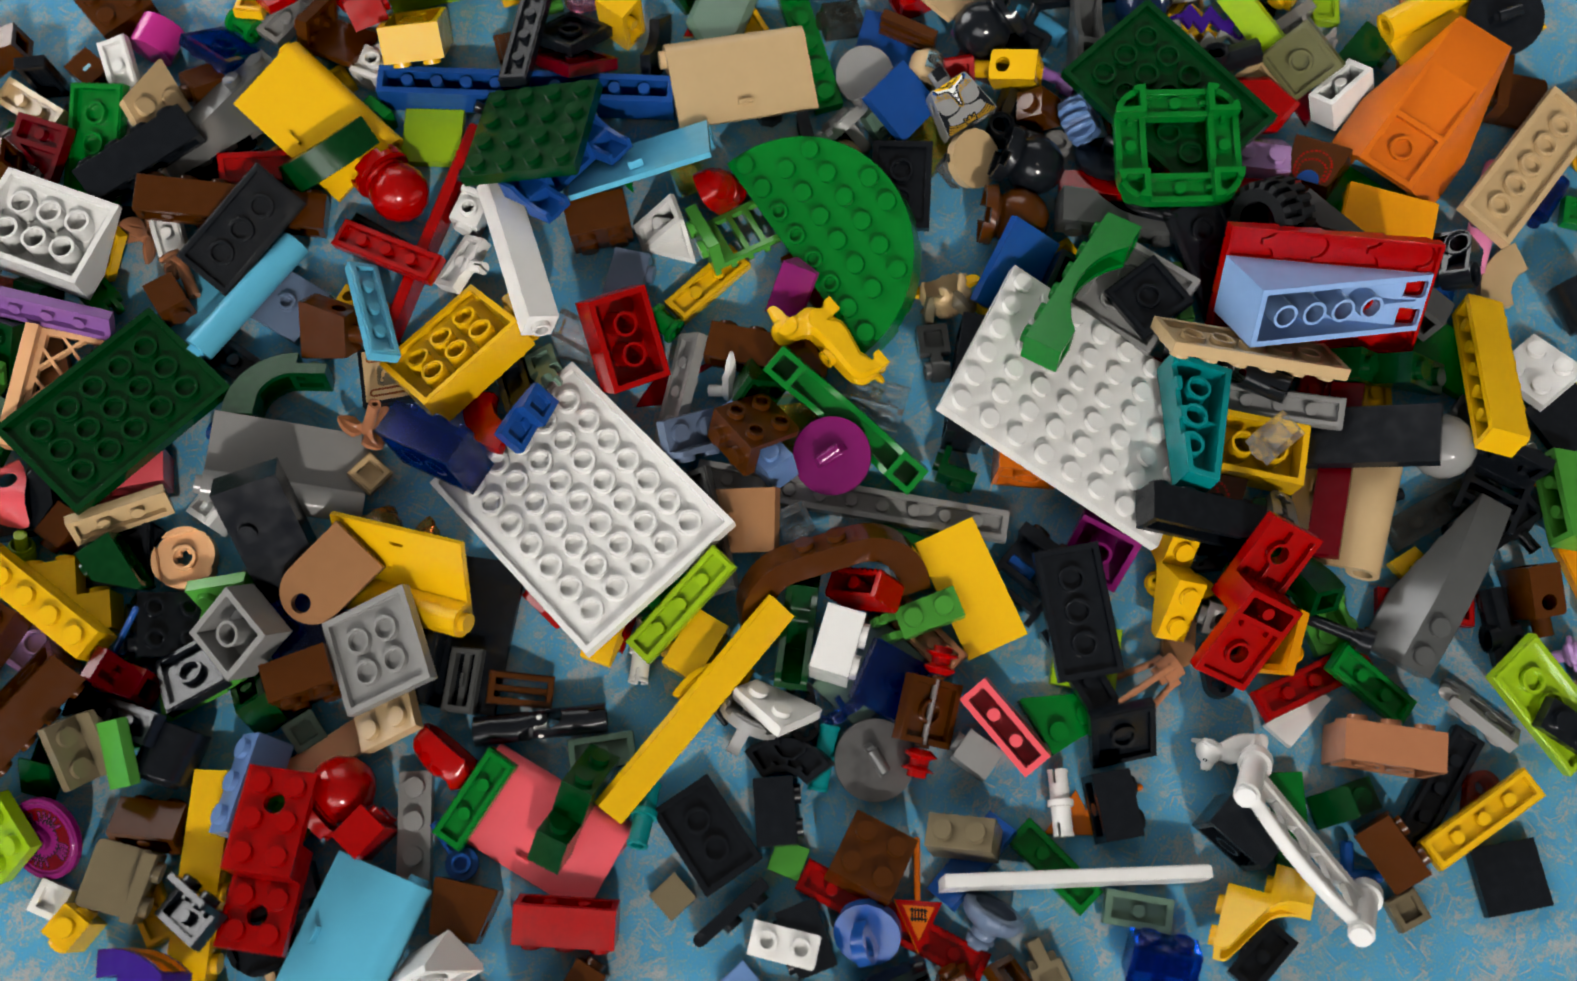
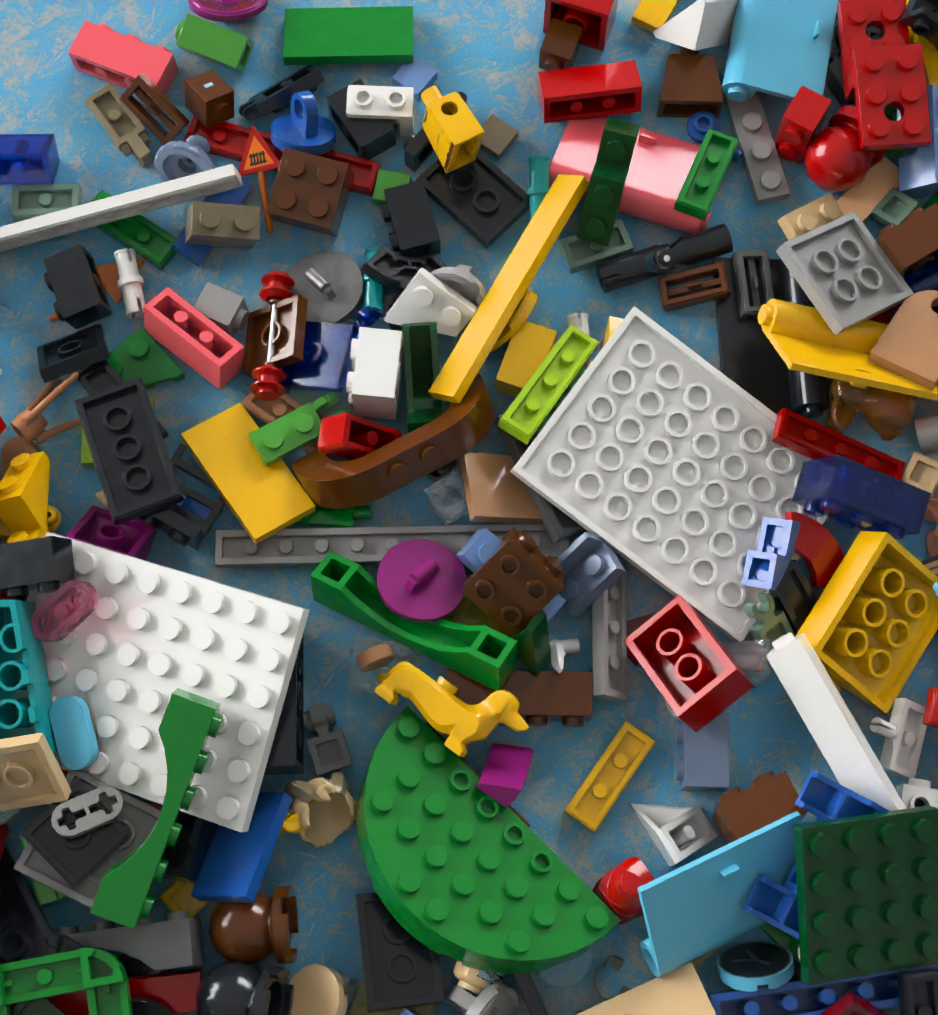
camera: 170 degrees right, 0 degrees up
(439, 502) = (820, 442): none -> red tile
(443, 756) = (748, 211): red piece -> none
(633, 117) = (755, 965): none -> tile
(666, 323) = (648, 712): green bush -> none
(711, 877) = (451, 128): none -> yellow torso
(714, 246) = (613, 816): bright green plate -> none
(734, 135) = (616, 965): none -> olive piece
(883, 393) = (375, 657): none -> medium nougat tile
(952, 476) = (281, 589): dark green bracket -> none
(1136, 298) = (91, 820): none -> light grey beam
(1144, 467) = (66, 608): none -> clear pink plate
(1145, 374) = (73, 732): none -> medium azure tile

